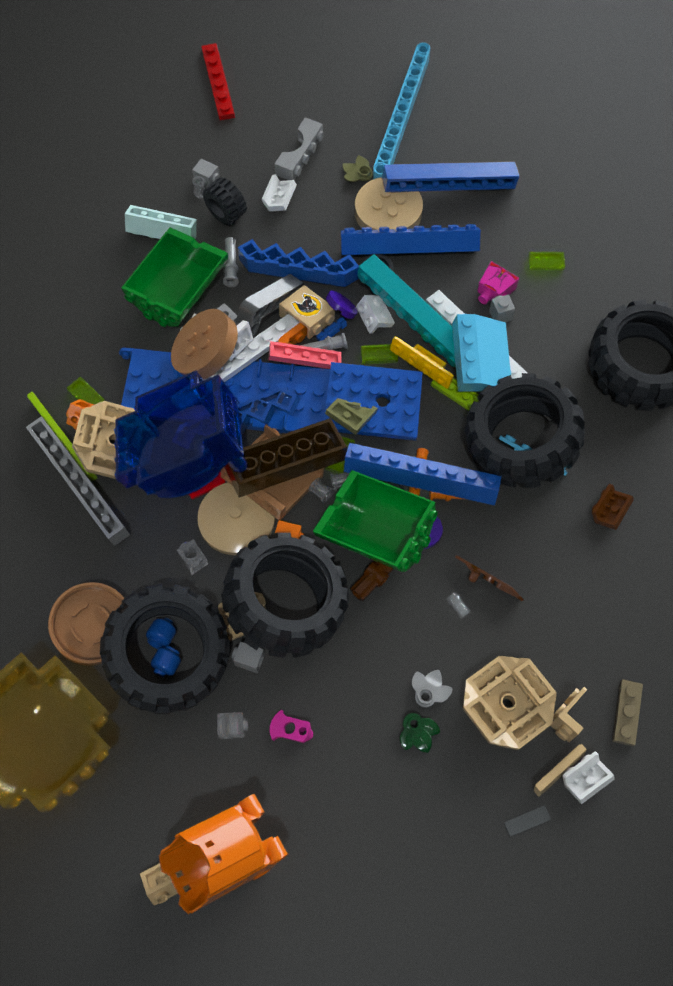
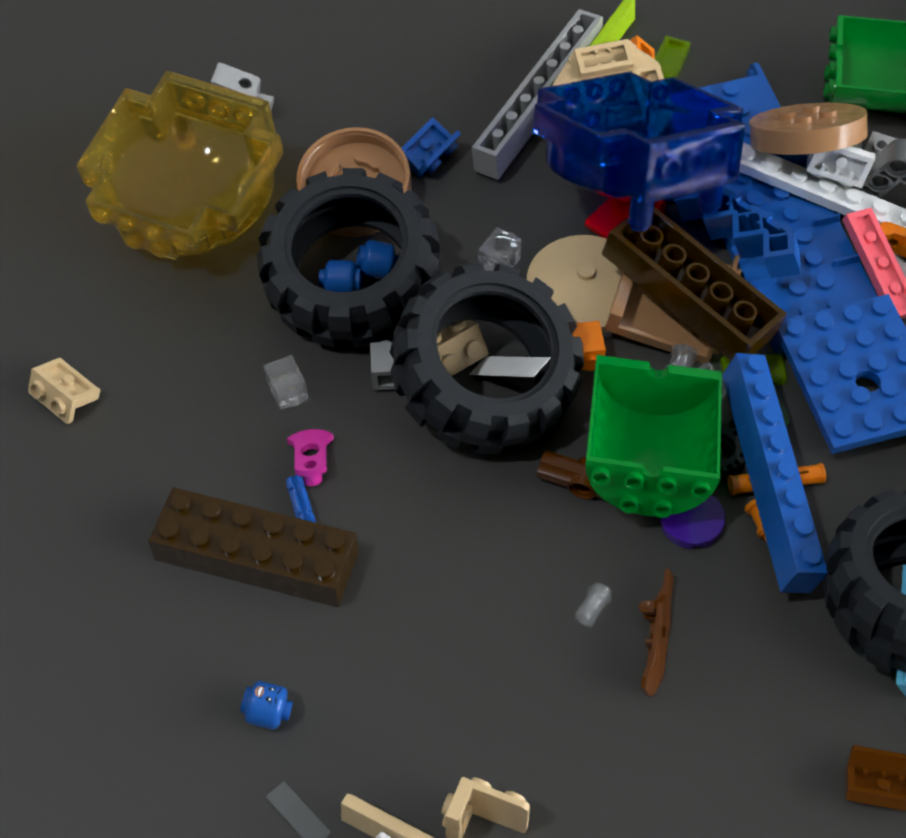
camera: 70 degrees right, 10 degrees down
(84, 564) = (428, 146): none -> blue bracket
(220, 855) = (96, 406): orange piece -> none
(290, 584) = (510, 366): none -> white sticker
(324, 747) = (299, 498): none -> blue axle
(346, 787) = (254, 546): none -> dark brown brick
(350, 414) = (811, 341): olive wing -> none
(420, 735) = (369, 619): dark green plate -> none
(431, 686) = (449, 611): light grey plate -> none
(458, 815) = (266, 705): none -> blue head
(526, 689) = (454, 681): tan piece -> none

